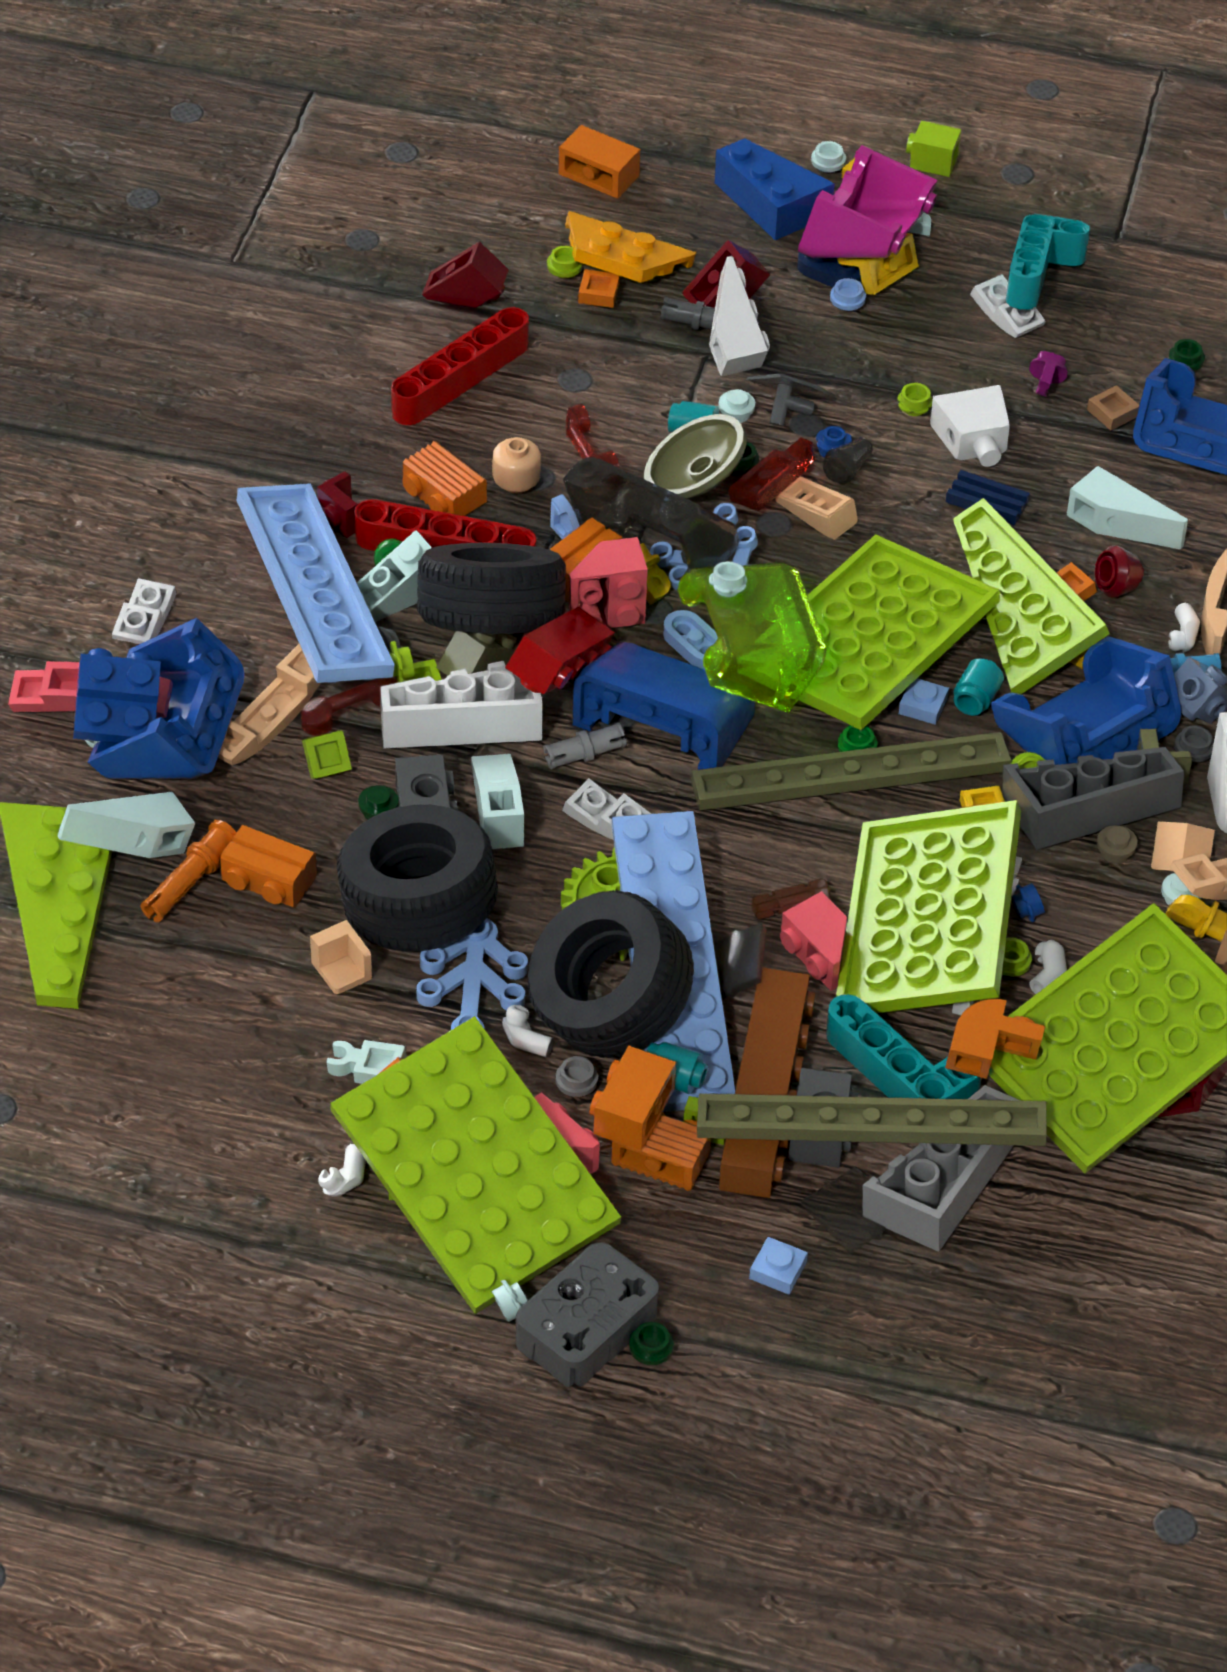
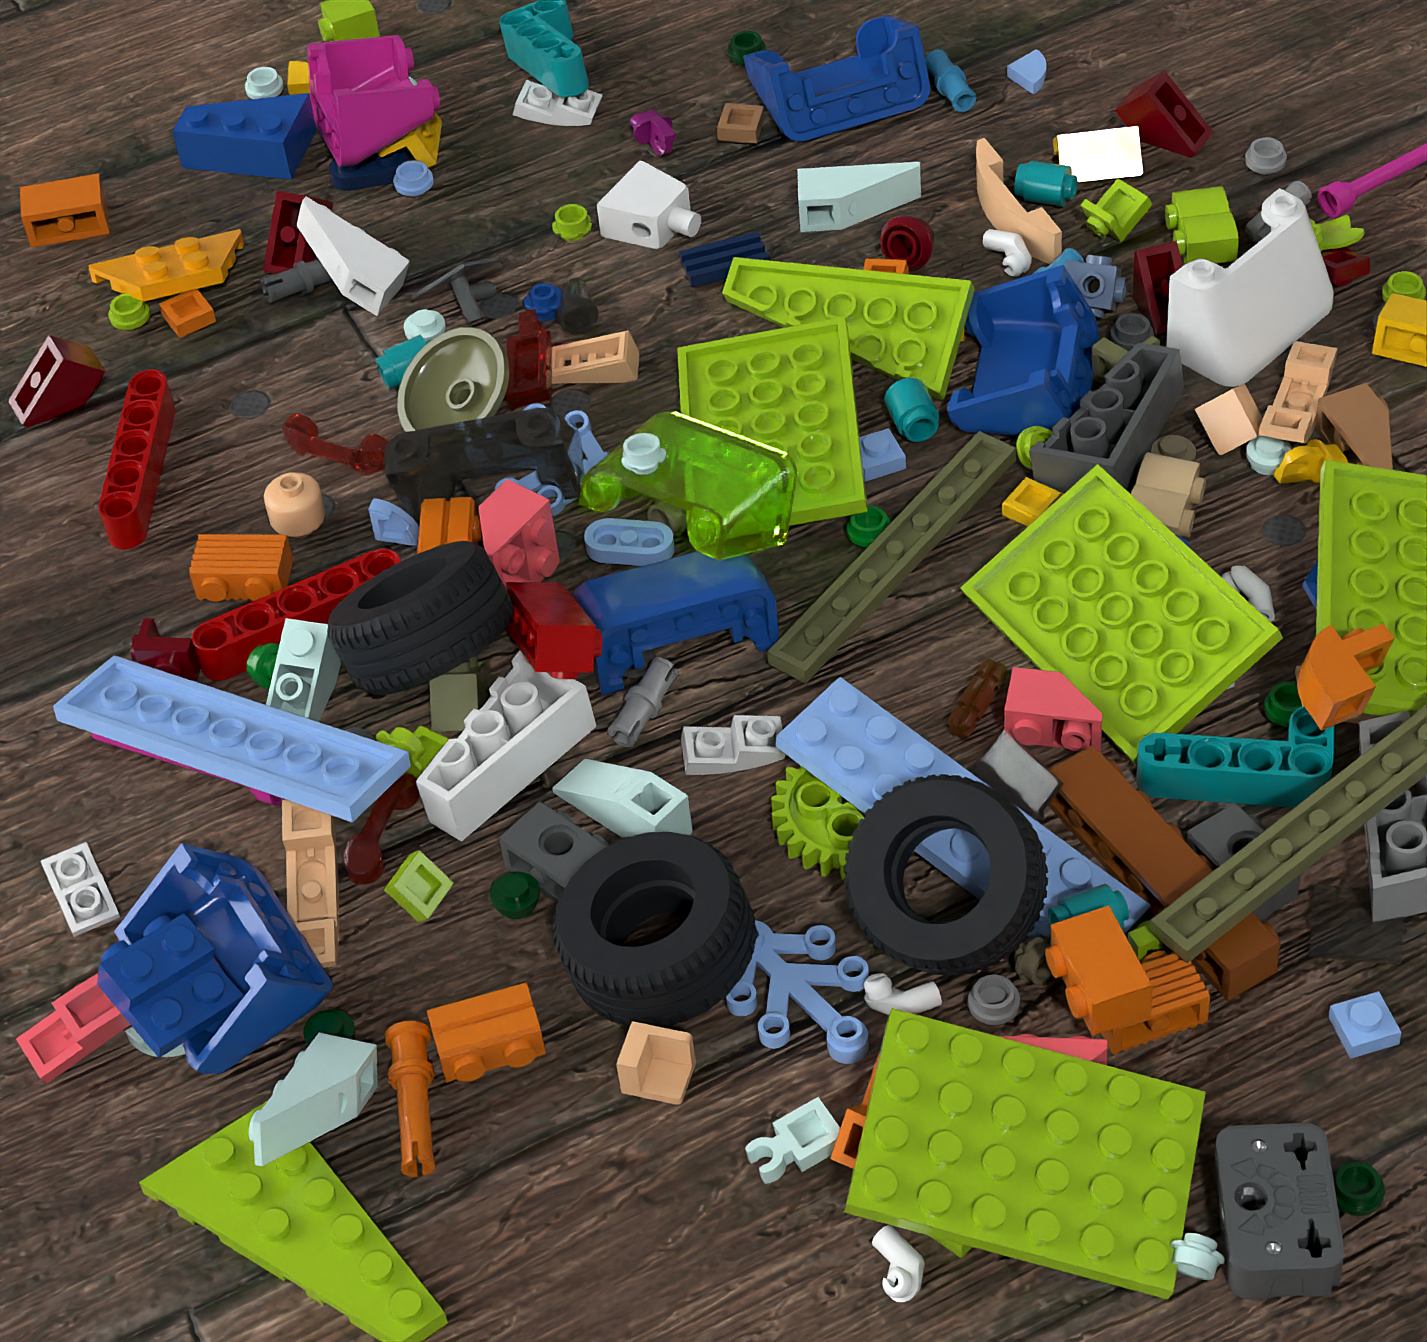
camera: 35 degrees left, 0 degrees up
(192, 798) = (329, 1022): none -> dark green plate
(1065, 865) = (1169, 490): none -> tan brick

